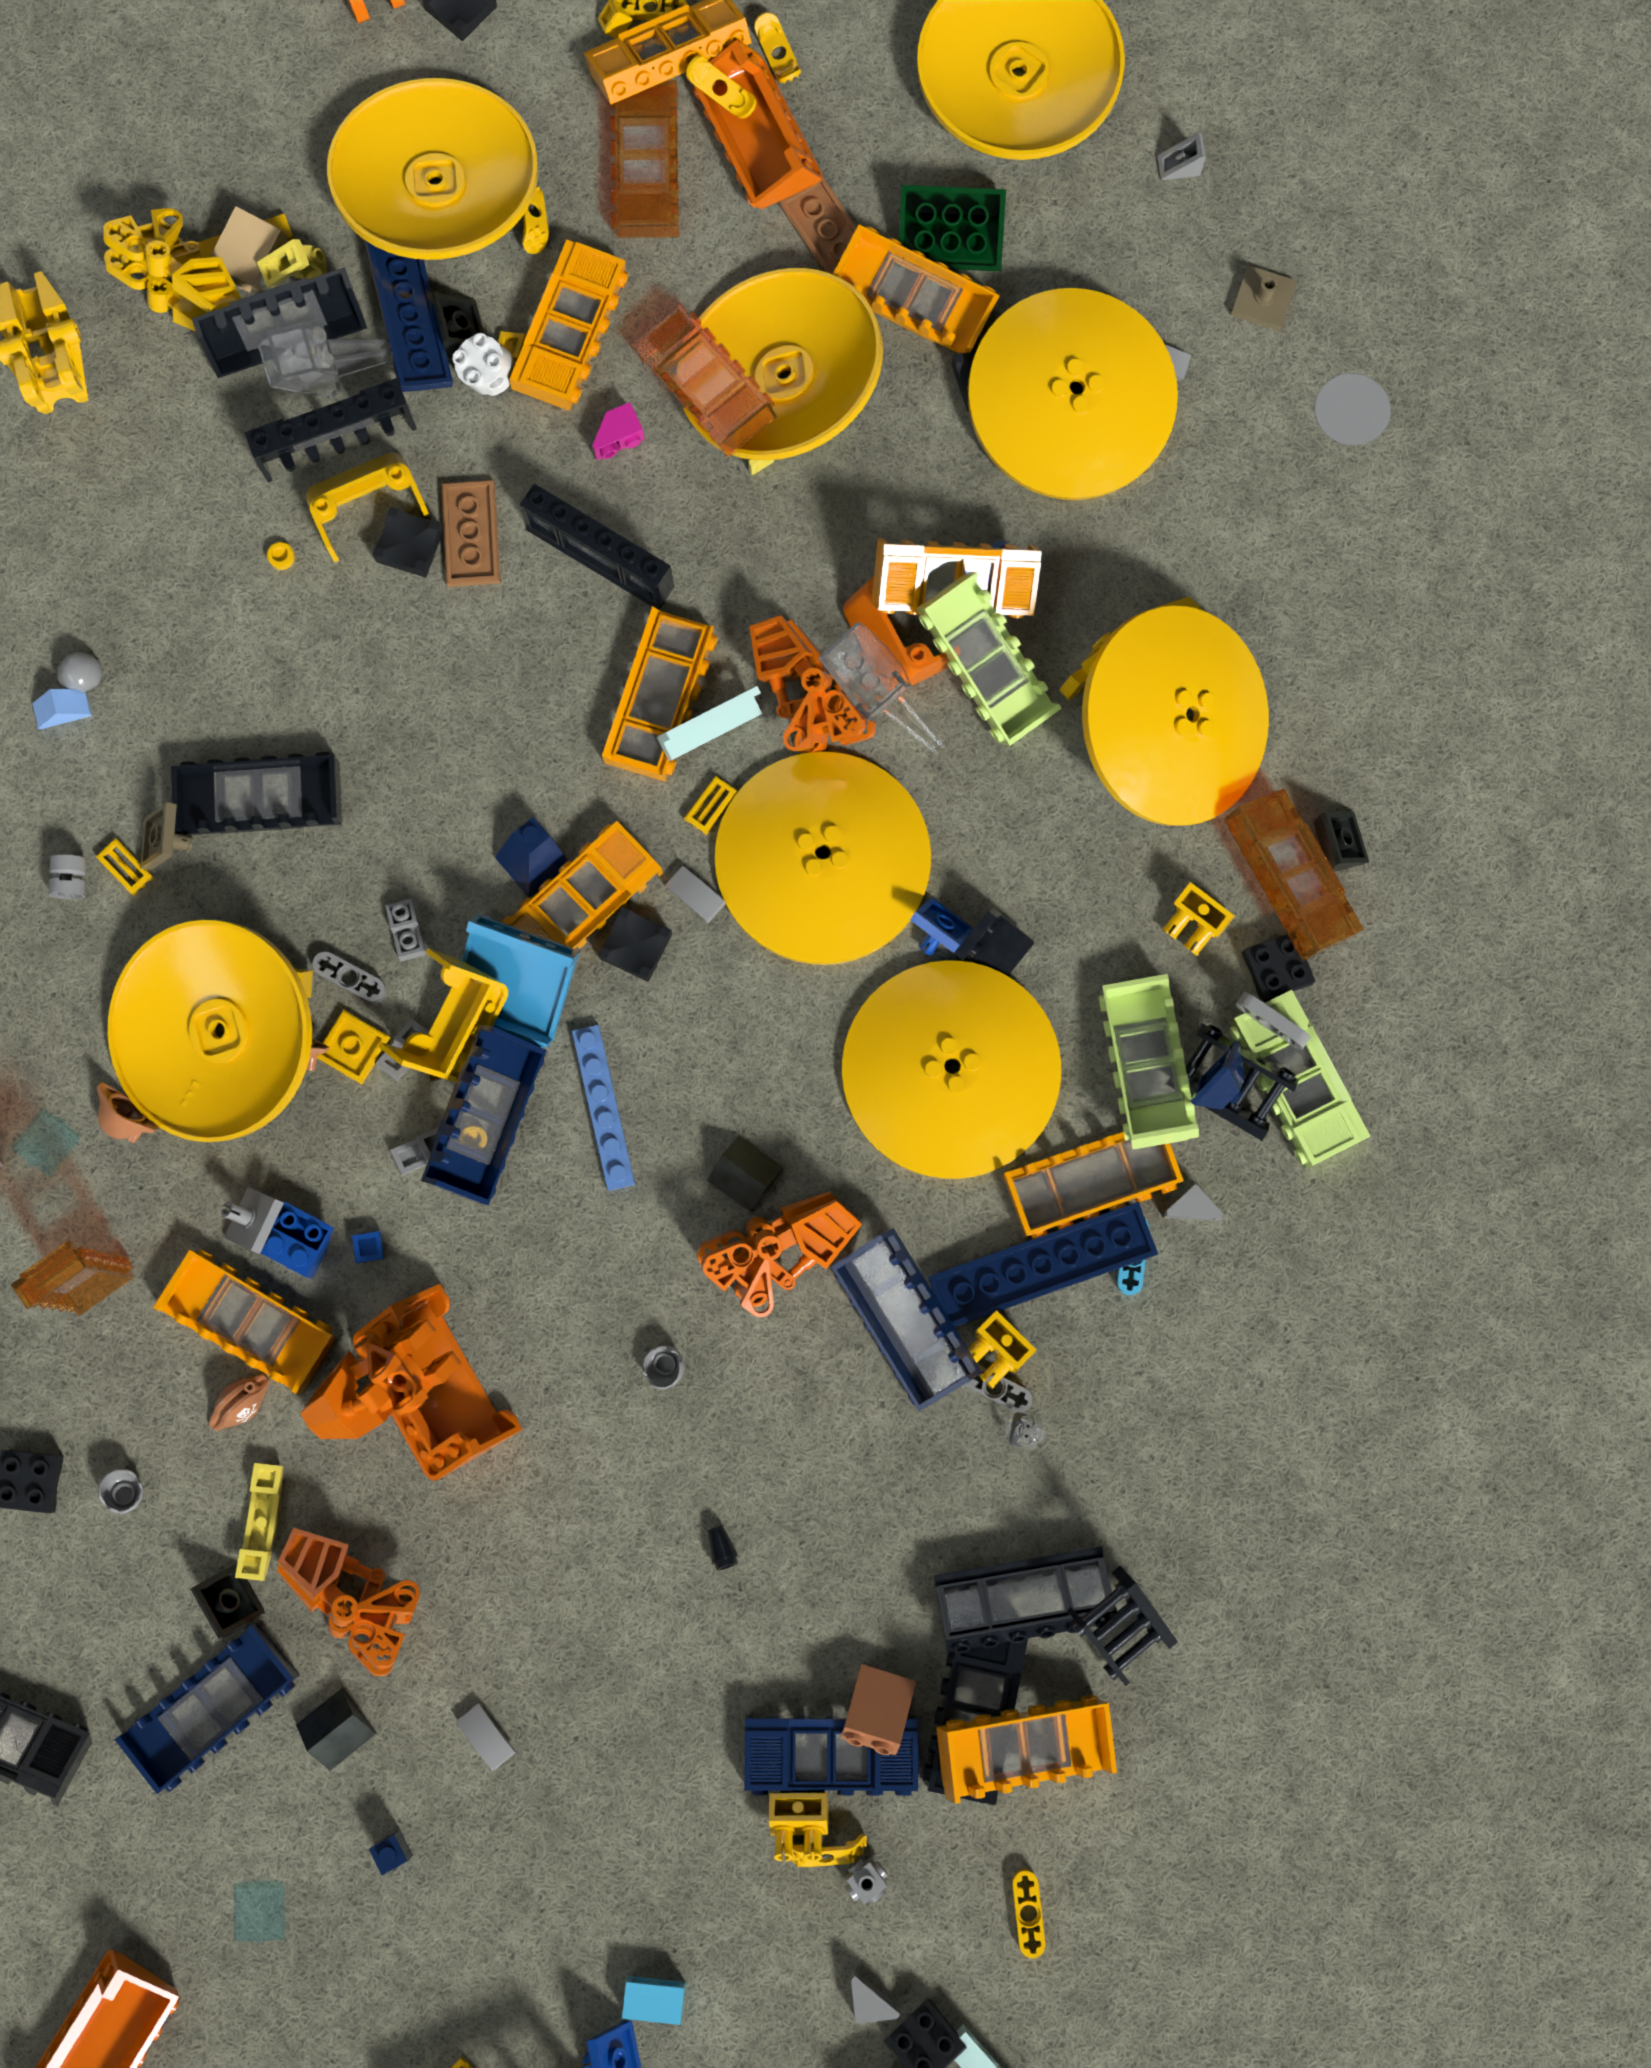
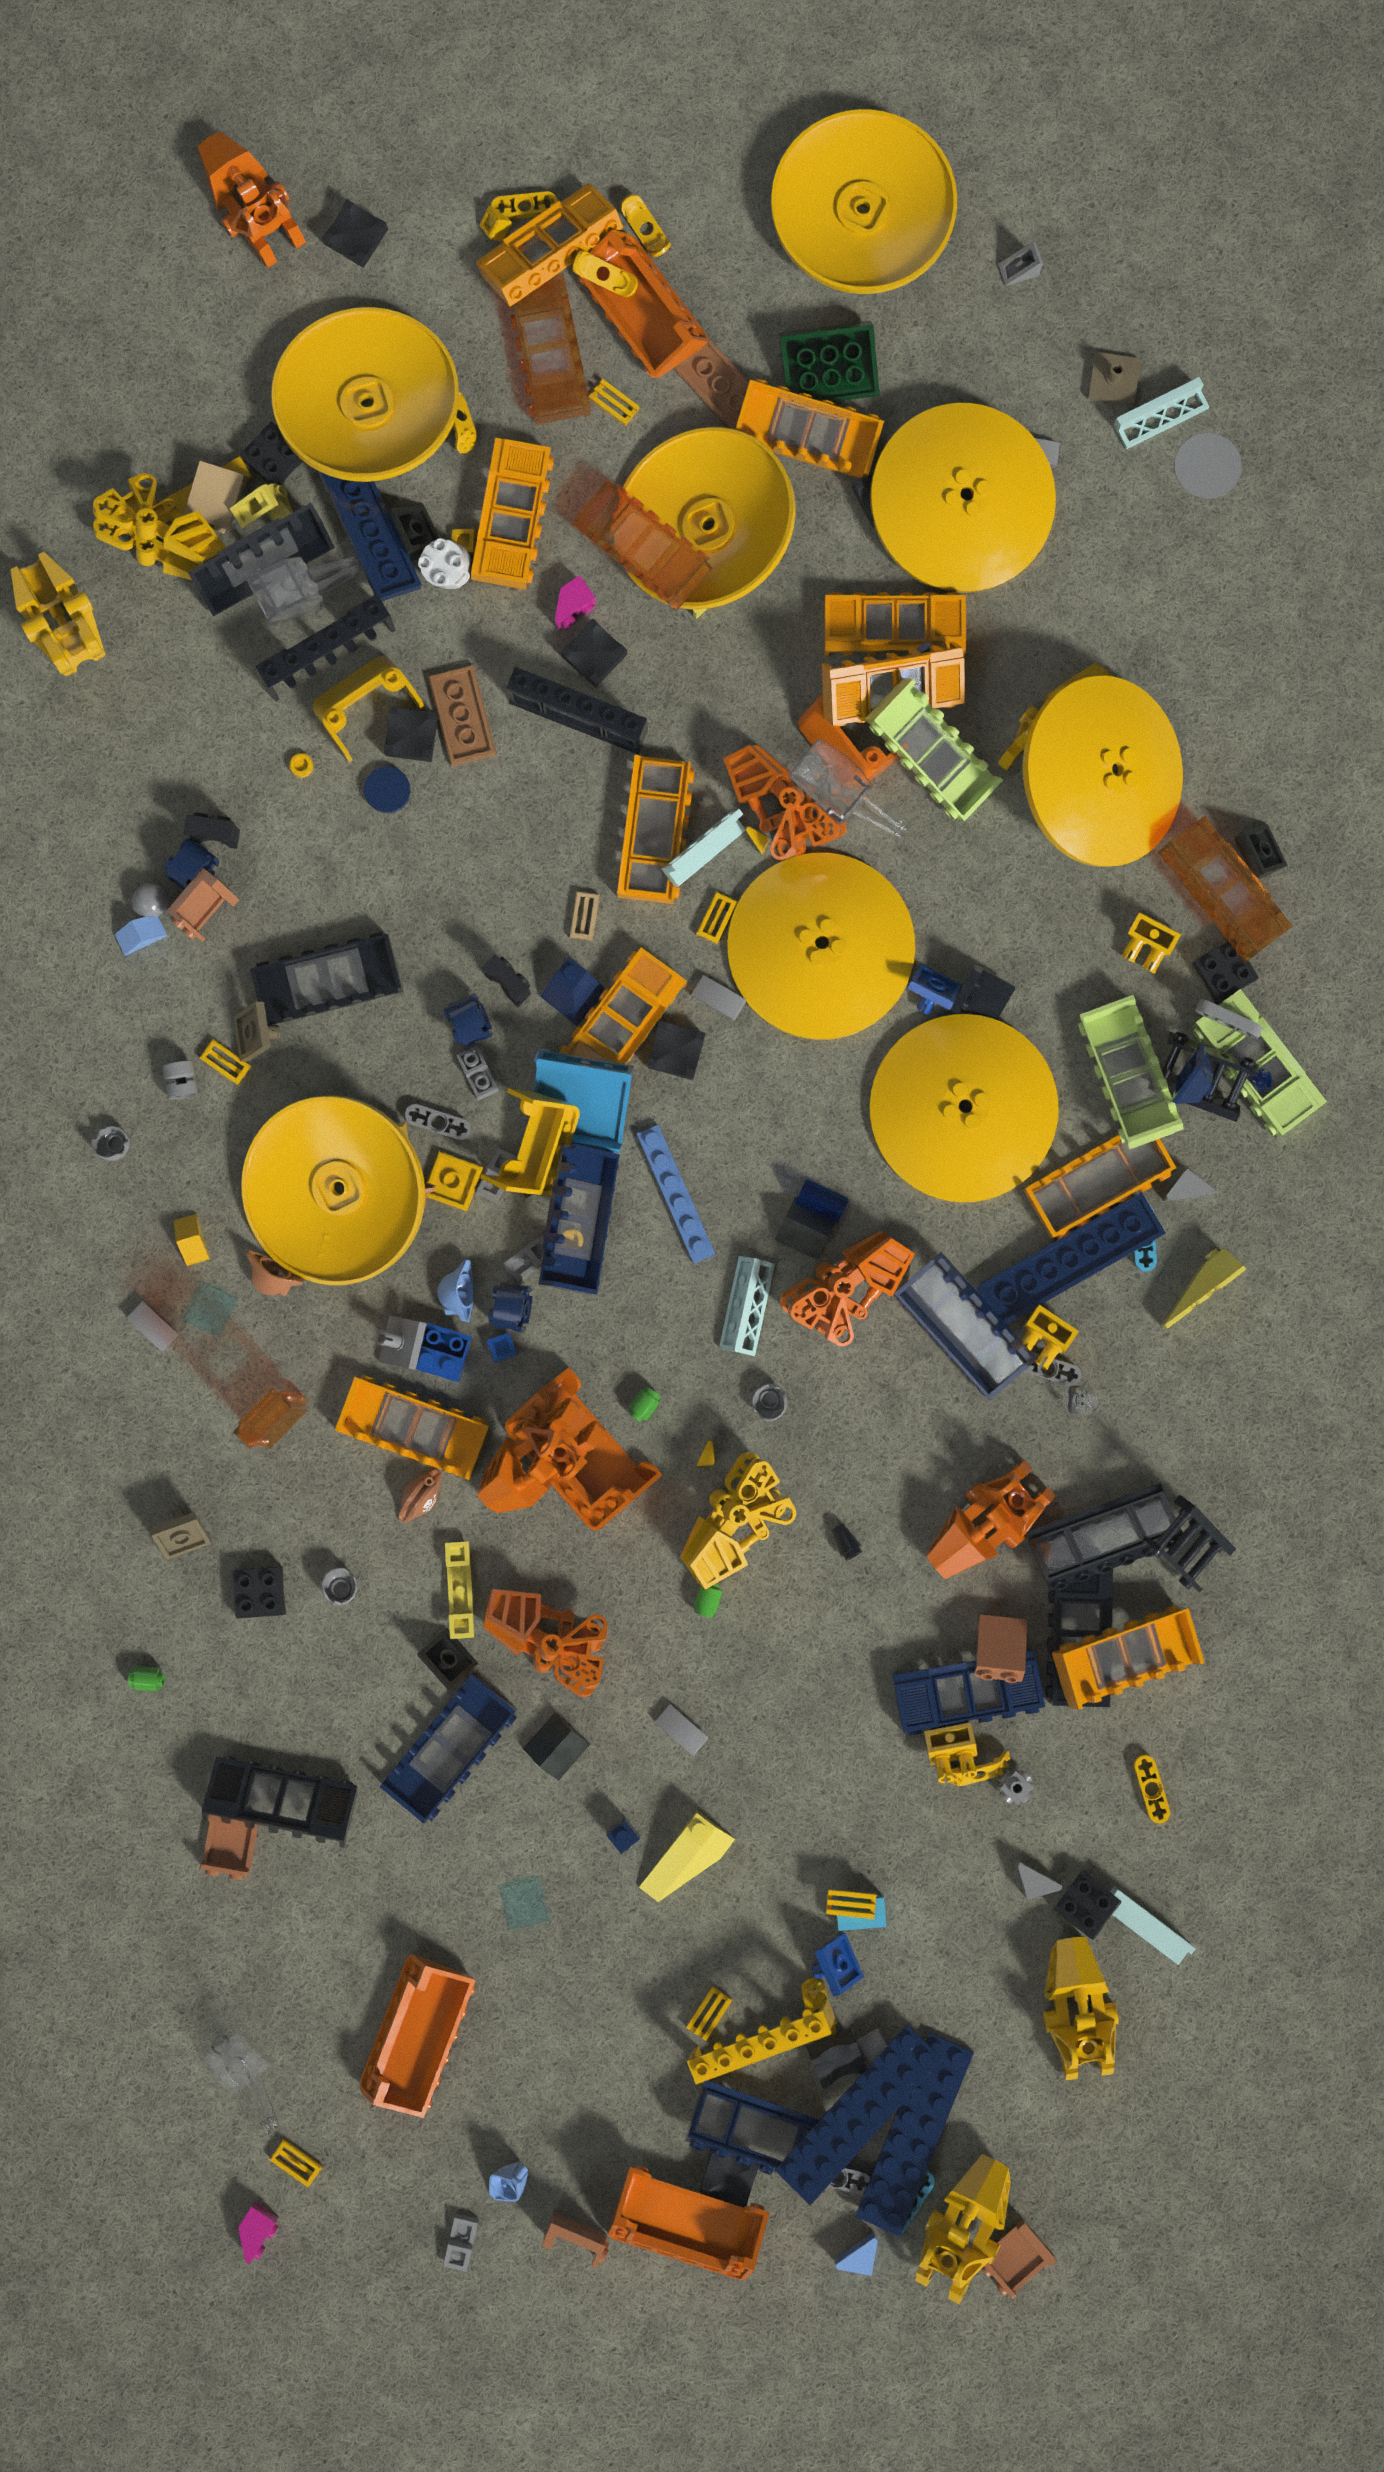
camera: 10 degrees left, 5 degrees up
(40, 1059) = (190, 1240): none -> yellow slope
(130, 684) = (199, 903): none -> nougat panel
(131, 643) = (189, 863): none -> dark blue brick
(161, 605) = (202, 829): none -> black brick
(317, 218) = (271, 455): none -> black brick
(331, 1173) = (457, 1291): none -> light blue hat
(370, 599) = (387, 790): none -> dark blue tile
(386, 1201) = (511, 1306): none -> dark blue brick
(405, 868) = (469, 1020): none -> dark blue brick
(454, 820) = (501, 972): none -> black brick
(468, 1888) = (690, 1853): none -> light yellow wedge
(518, 1343) = (644, 1404): none -> bright green brick
(546, 1586) = (708, 1600): none -> bright green brick
(559, 1529) = (710, 1549): none -> yellow piece
(573, 777) = (582, 936): none -> tan tile
(579, 1417) = (707, 1456): none -> yellow slope
(630, 490) = (594, 653): none -> black brick
(639, 2000) = (869, 1915): none -> yellow tile
(655, 1248) = (742, 1305): none -> light aqua fence
(693, 213) = (598, 390): none -> yellow tile
(768, 1145) = (822, 1201): none -> clear blue panel
(775, 725) = (759, 839): none -> yellow slope
(858, 1579) = (1015, 1511): none -> orange piece
(969, 513) = (892, 622): none -> light orange window
(1201, 1315) = (1212, 1275): none -> light yellow wedge
(1300, 1098) = (1263, 1080): none -> clear blue plate
(1309, 333) = (1158, 405): none -> light aqua fence

